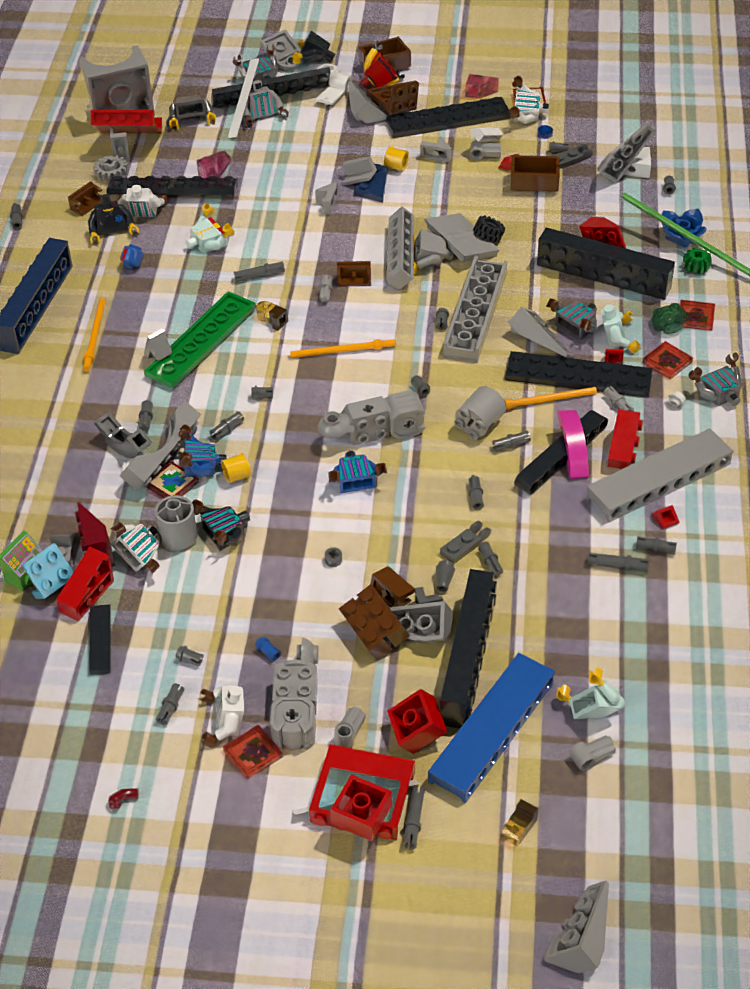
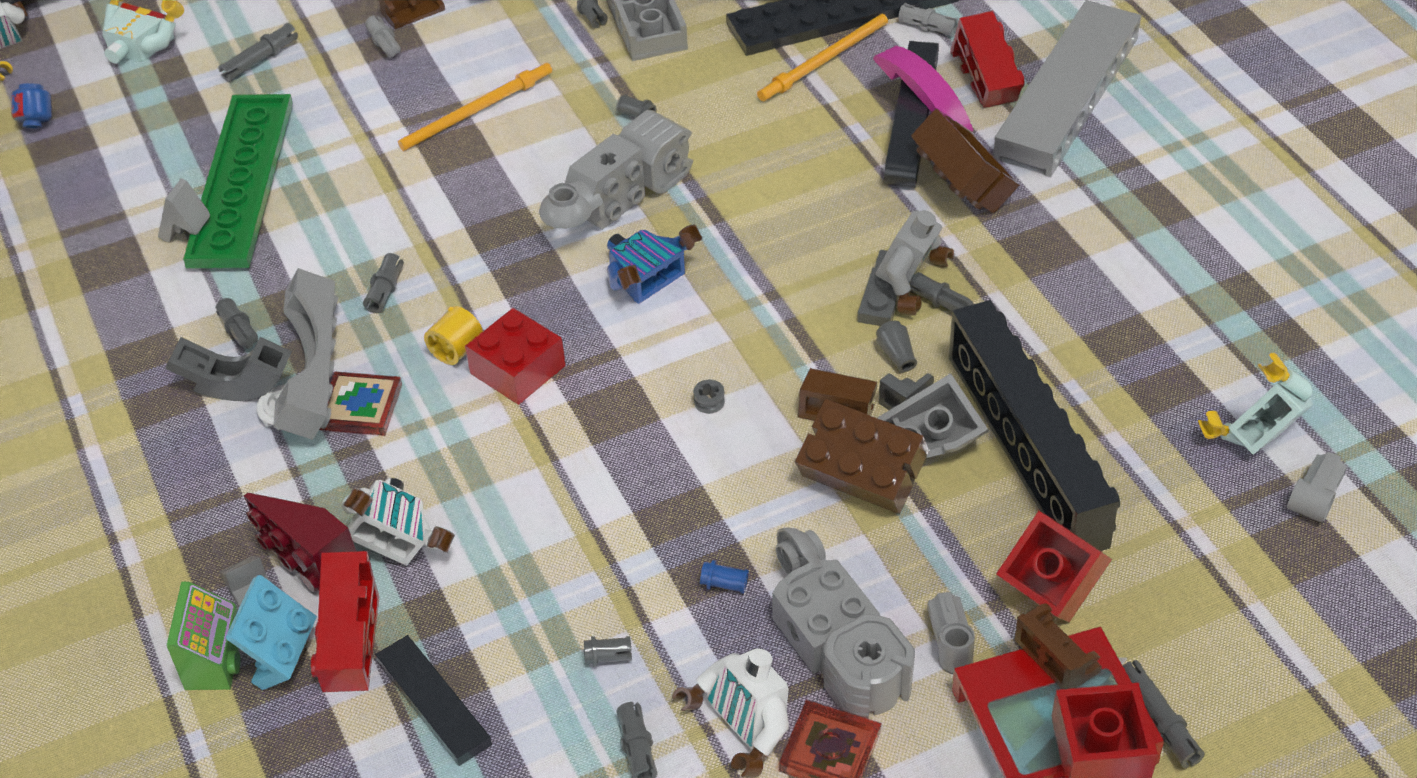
camera: 30 degrees left, 0 degrees up
(89, 354) = (65, 275): light orange bar -> none
(176, 523) = (430, 454): light grey cylinder -> none
(198, 457) = (379, 345): torso -> none
(221, 524) = (498, 427): torso -> none
(257, 492) = (515, 355): none -> red brick
(261, 392) = (402, 213): dark grey pin -> none
(272, 314) = (327, 101): leg -> none
(381, 758) = (1055, 649): none -> reddish brown hinge
(476, 492) = (840, 215): dark grey axle -> none
(480, 412) = (761, 104): light grey cylinder -> none
(483, 528) = (907, 254): none -> light grey torso
(491, 727) = (1155, 526): blue tile -> none
(511, 441) = (829, 128): dark grey pin -> none
(520, 822) = (1315, 638): leg -> none
(557, 492) = (964, 162): none -> reddish brown piece
(618, 561) = (1127, 216): dark grey pin -> none
(656, 545) = (1143, 177): dark grey pin -> none
(666, 517) = (1120, 137): red slope -> none

